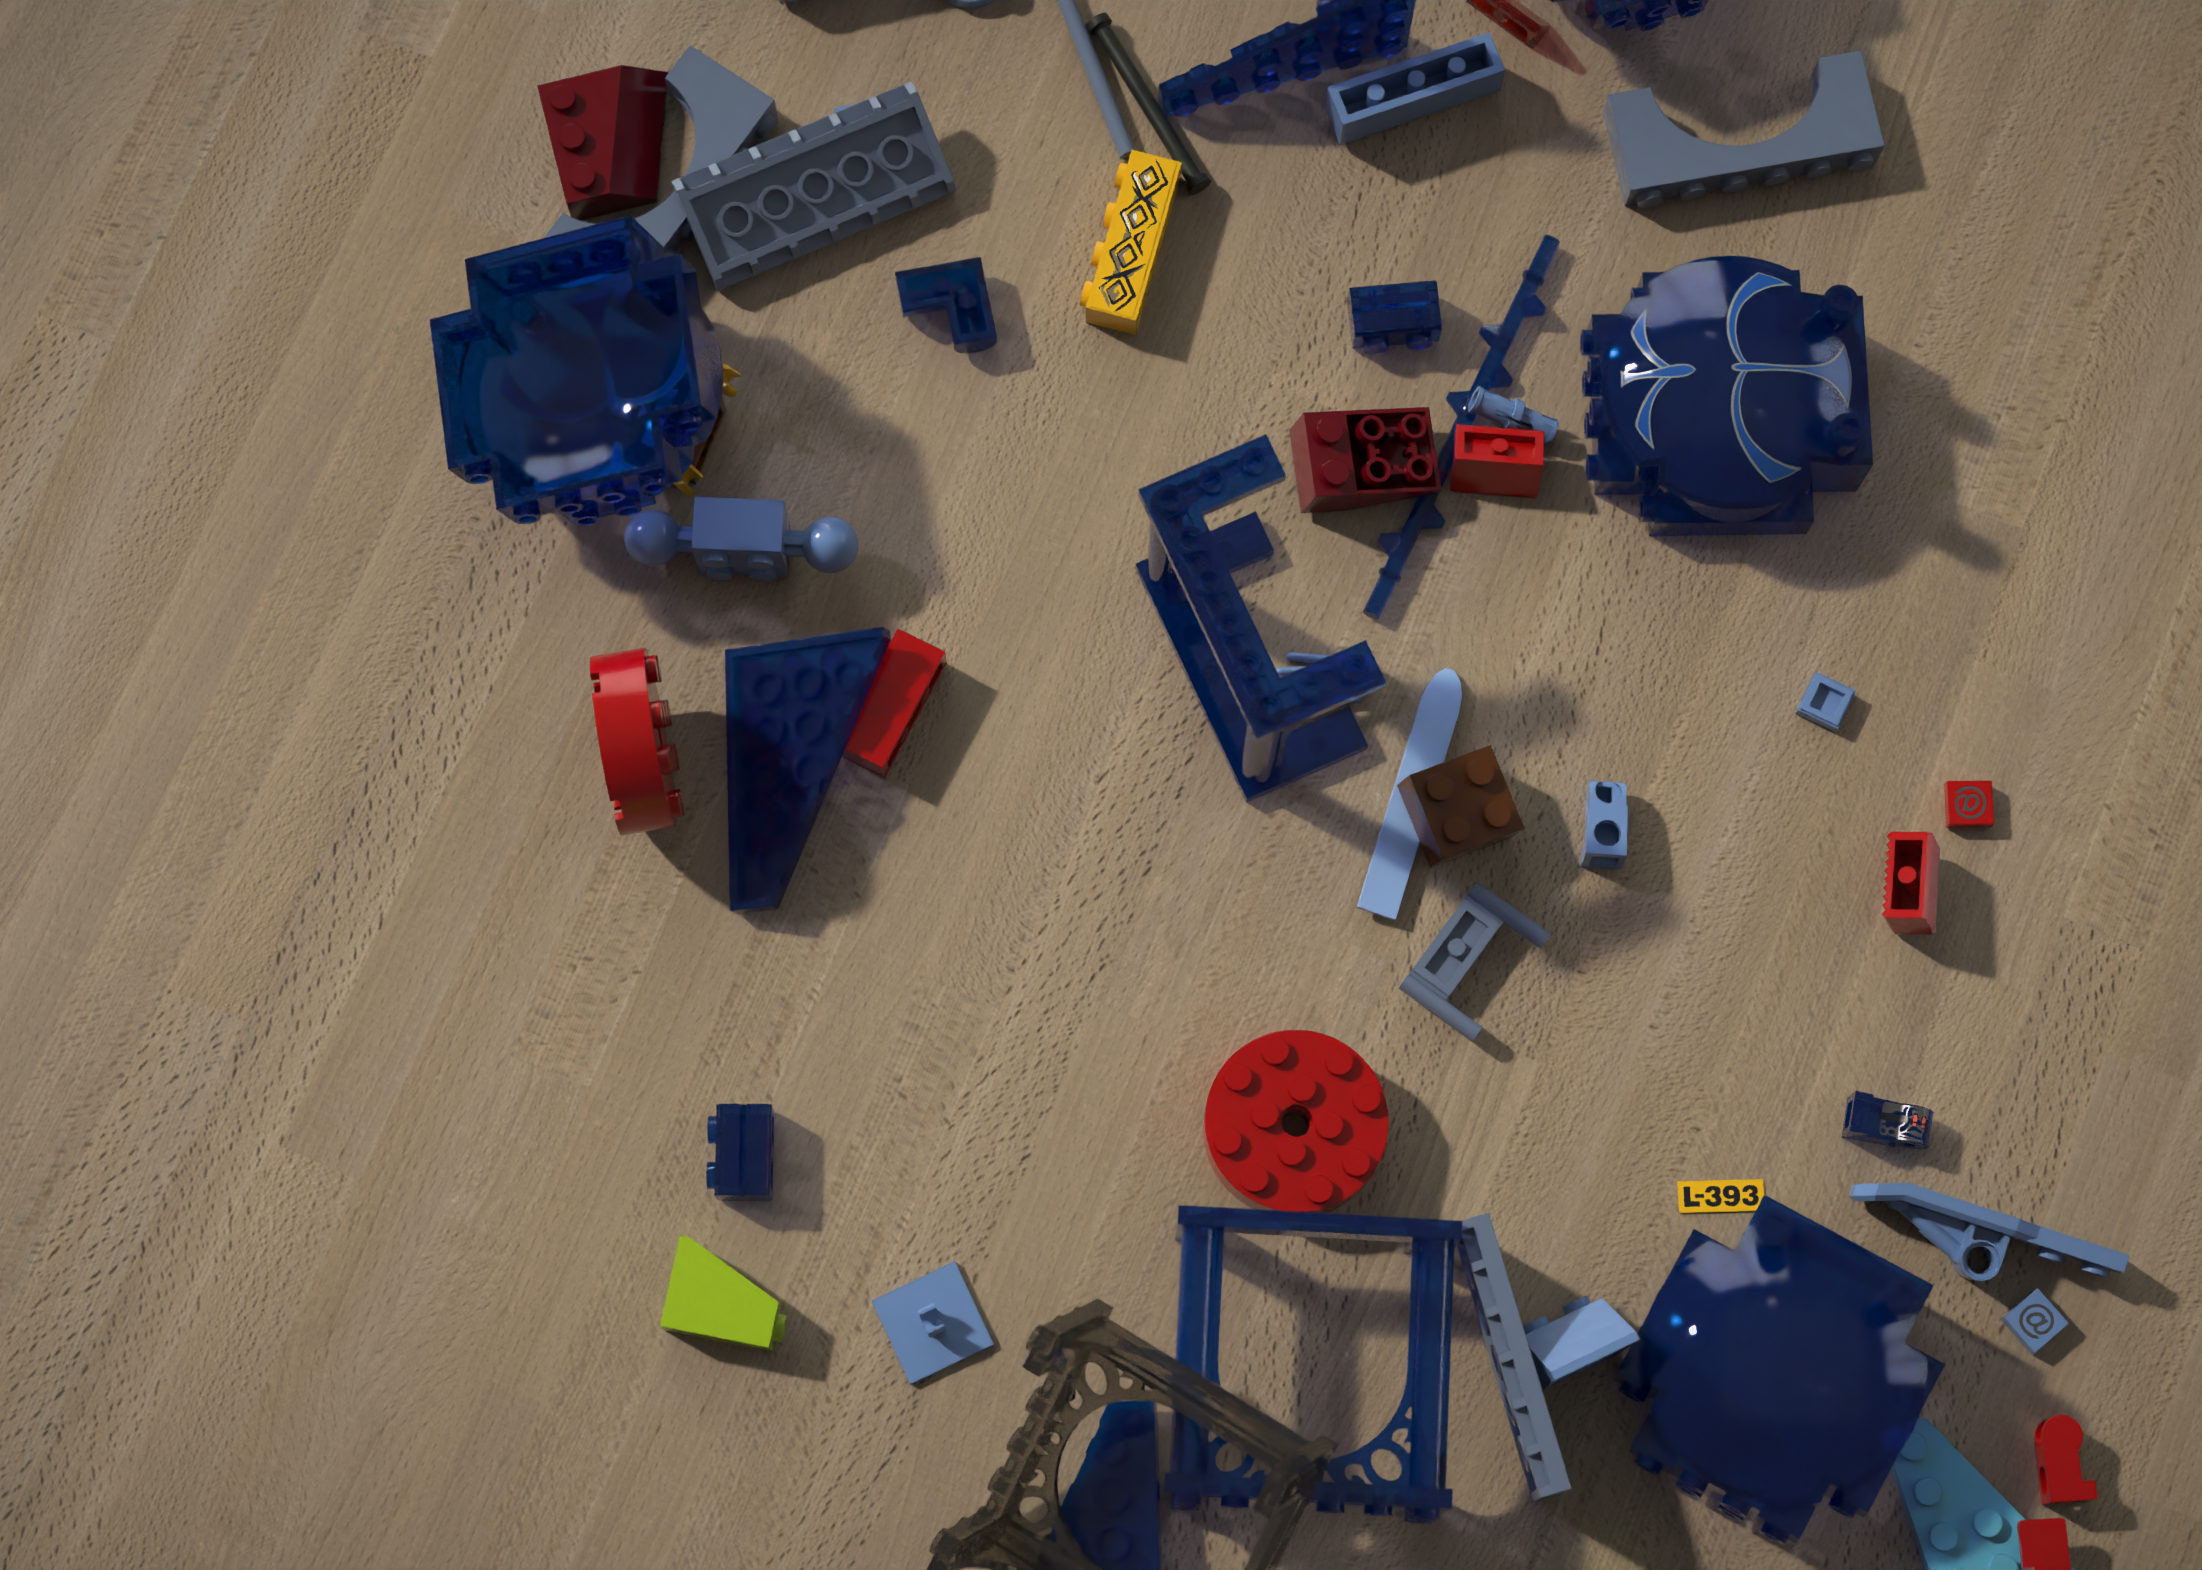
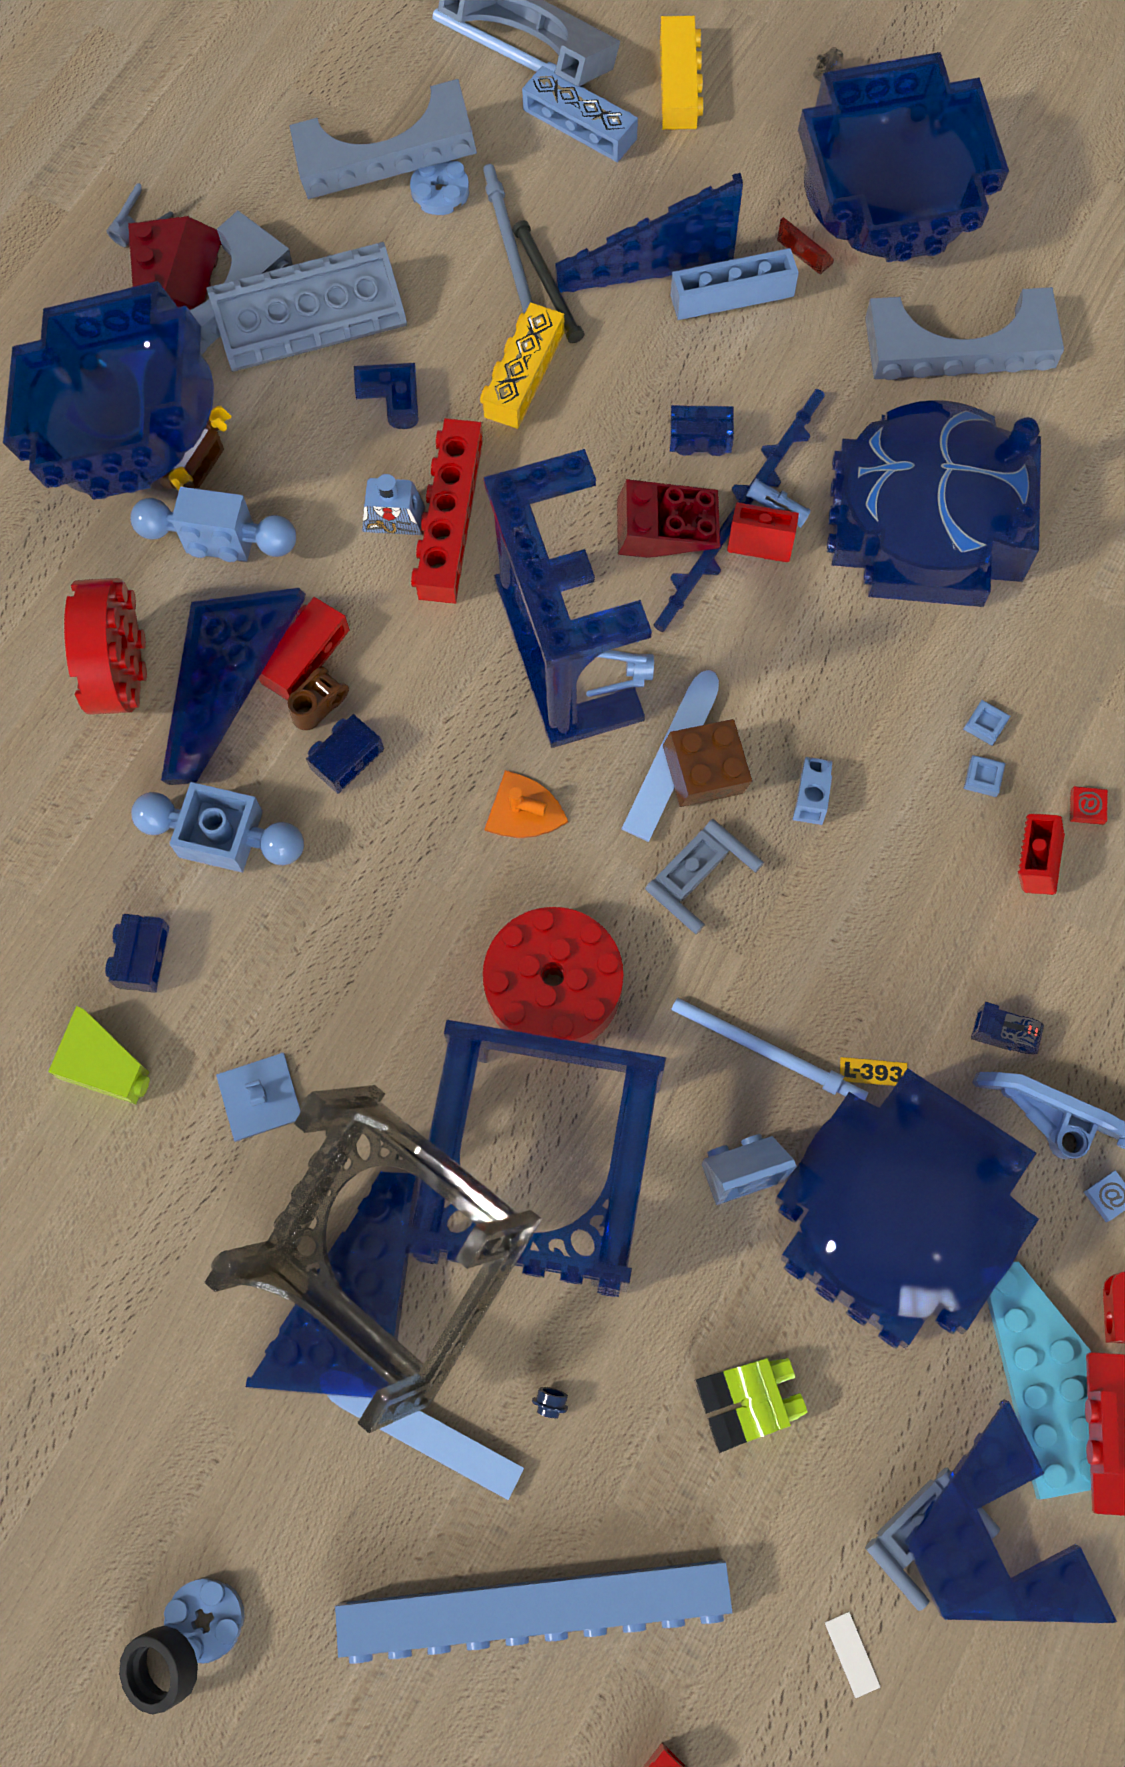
camera: 10 degrees right, 5 degrees down
(521, 80) = (119, 230): none -> sand blue plant
(820, 970) = (217, 827): none -> medium blue brick
(926, 764) = (320, 694): none -> reddish brown piece
(971, 843) = (344, 752): none -> clear blue brick
(981, 482) = (392, 506): none -> medium blue torso
(1065, 365) = (443, 582): none -> red brick
(1222, 892) = (524, 809): none -> orange shield
(1511, 1359) = (695, 1173): sand blue ladder -> none
(1670, 1216) = (831, 1082): none -> light blue bar
(1828, 778) = (984, 776): none -> medium blue tile

